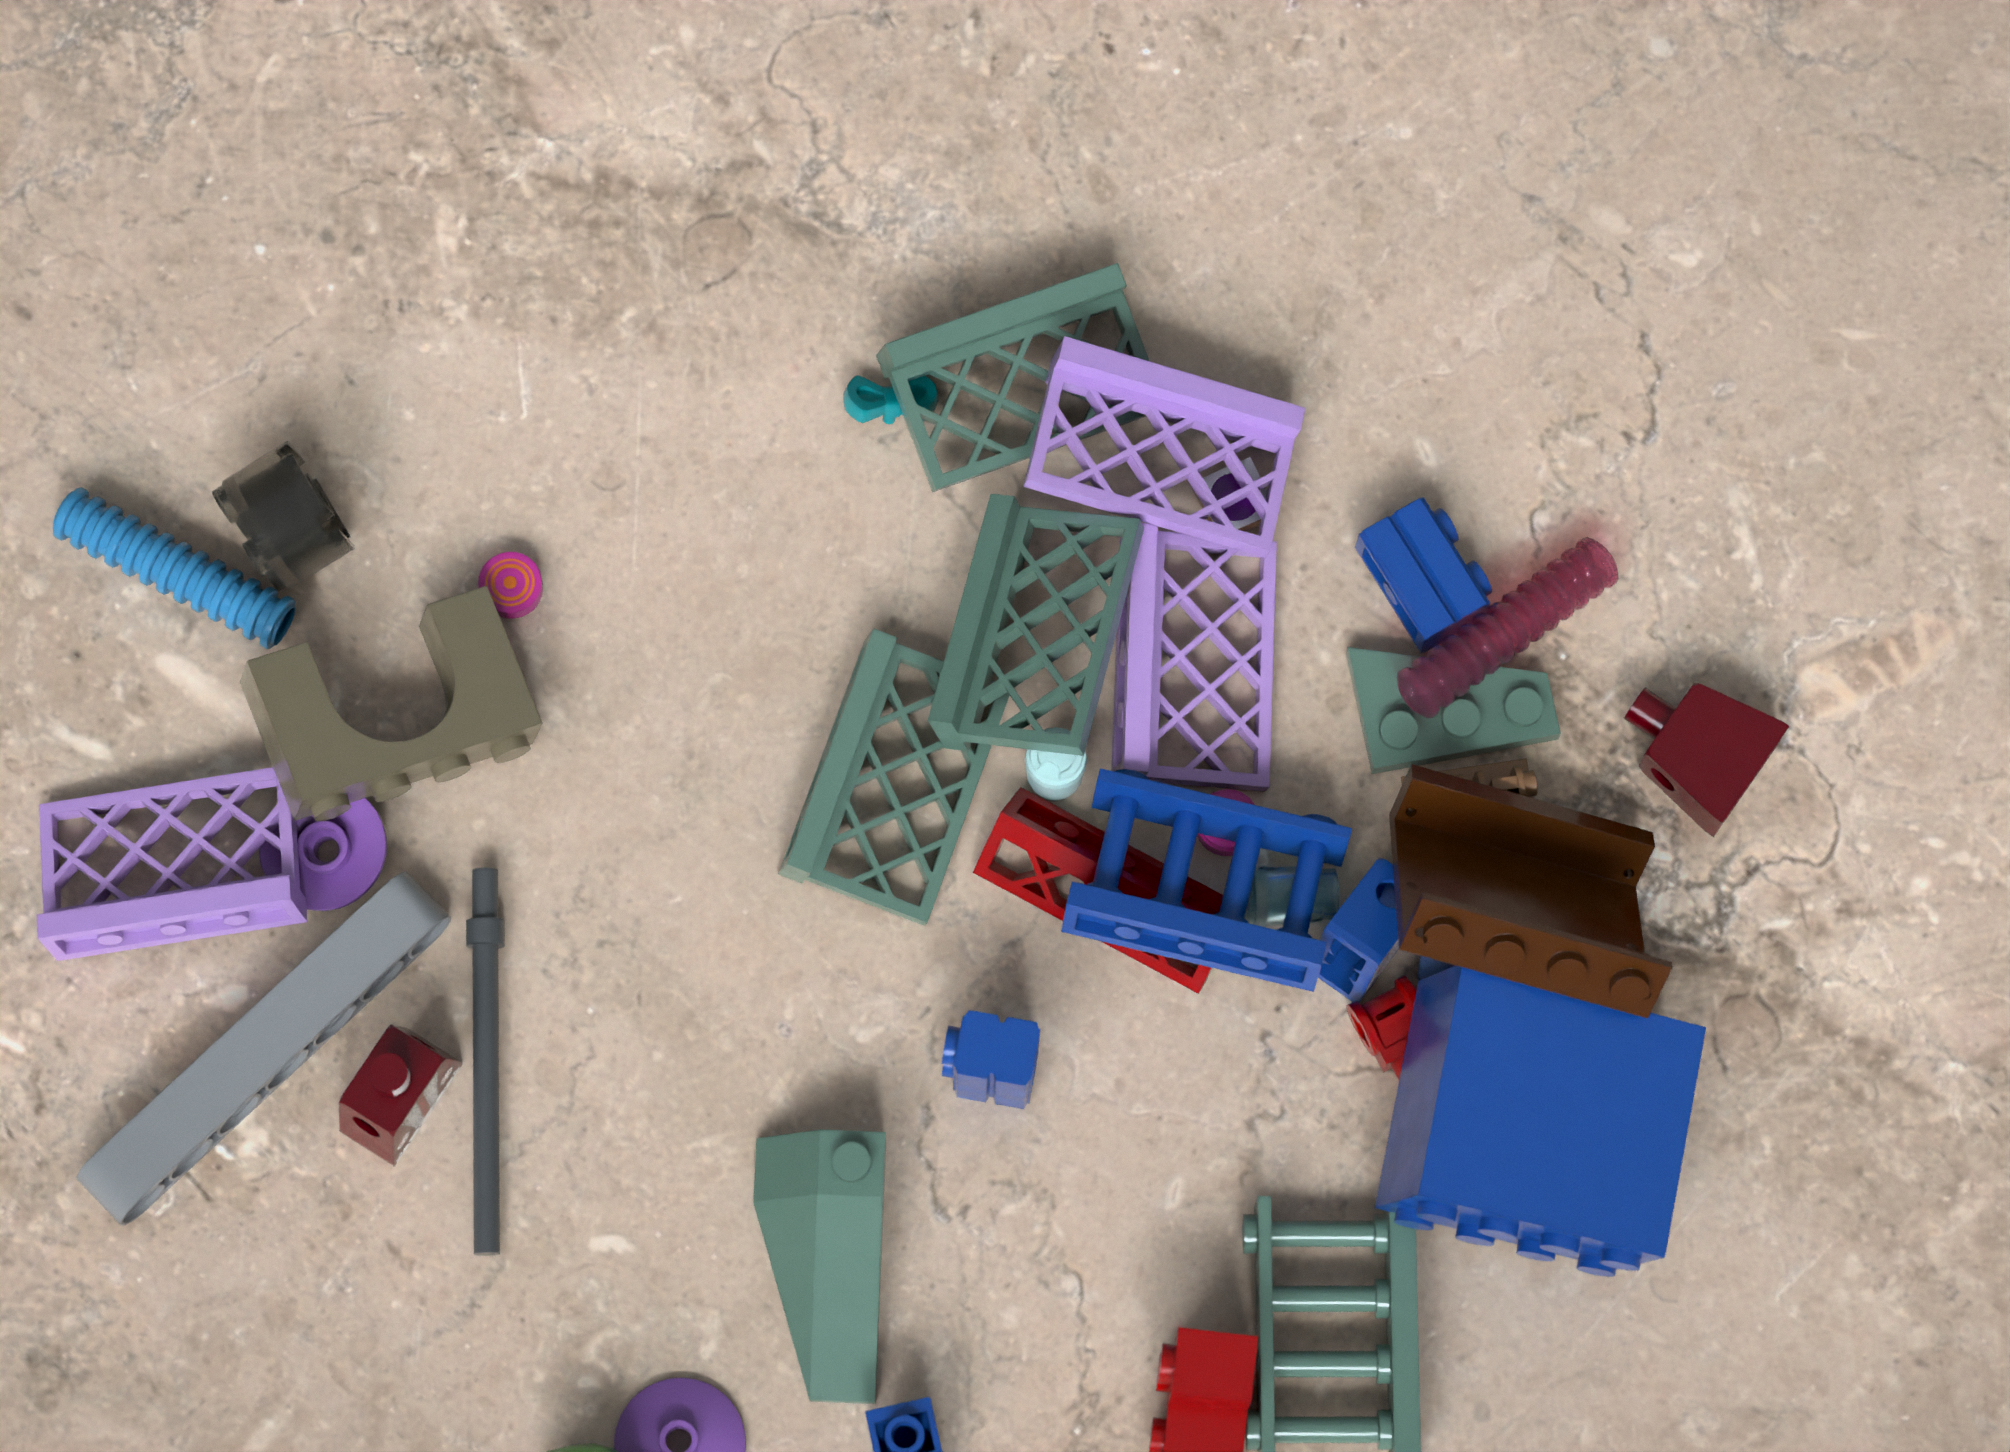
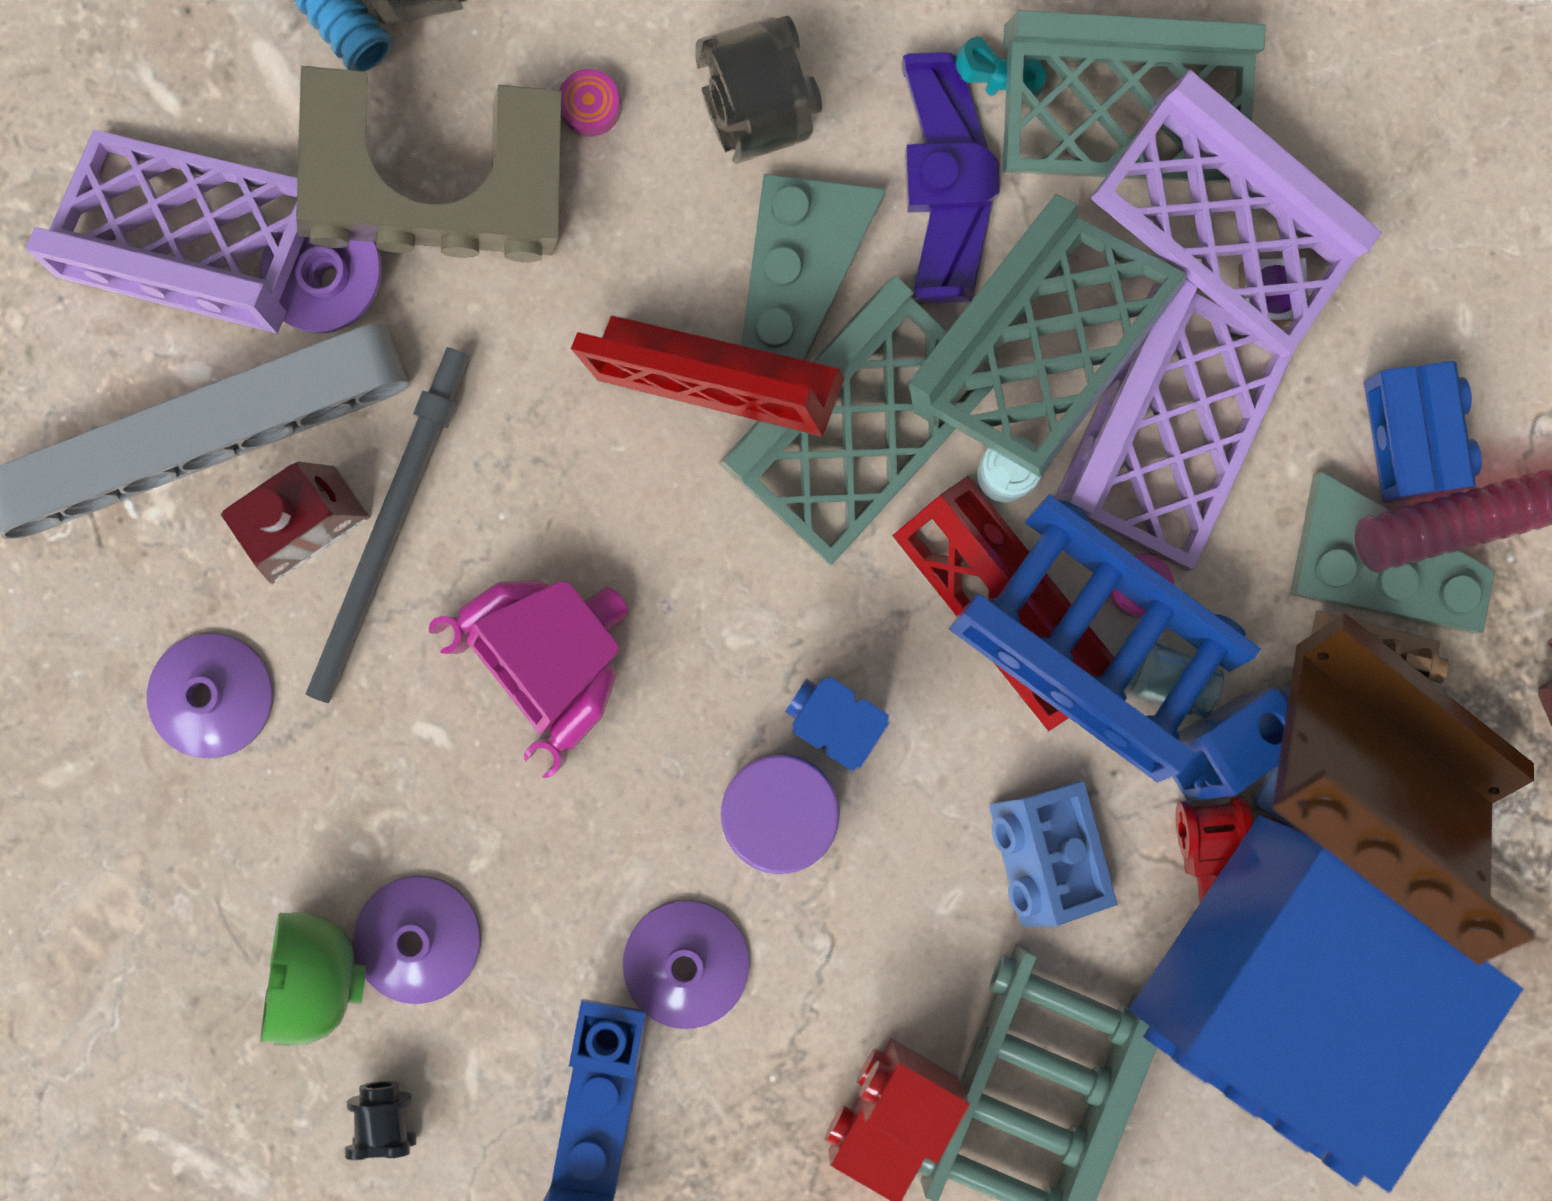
camera: 30 degrees right, 10 degrees up
(387, 1329) = (238, 701): none -> medium lavender dish
(670, 509) = (758, 88): none -> clear smoke brick
(691, 1112) = (545, 654): none -> dark pink torso
(740, 789) = (712, 374): none -> red fence
(775, 653) = (800, 258): none -> sand green wing
(823, 1236) = (618, 815): sand green wedge -> none
(884, 517) = (948, 177): none -> dark purple plate
(956, 1390) = (694, 932): none -> medium lavender dish
(977, 1172) = (780, 814): none -> medium lavender head
(1249, 1104) = (1052, 856): none -> medium blue bracket

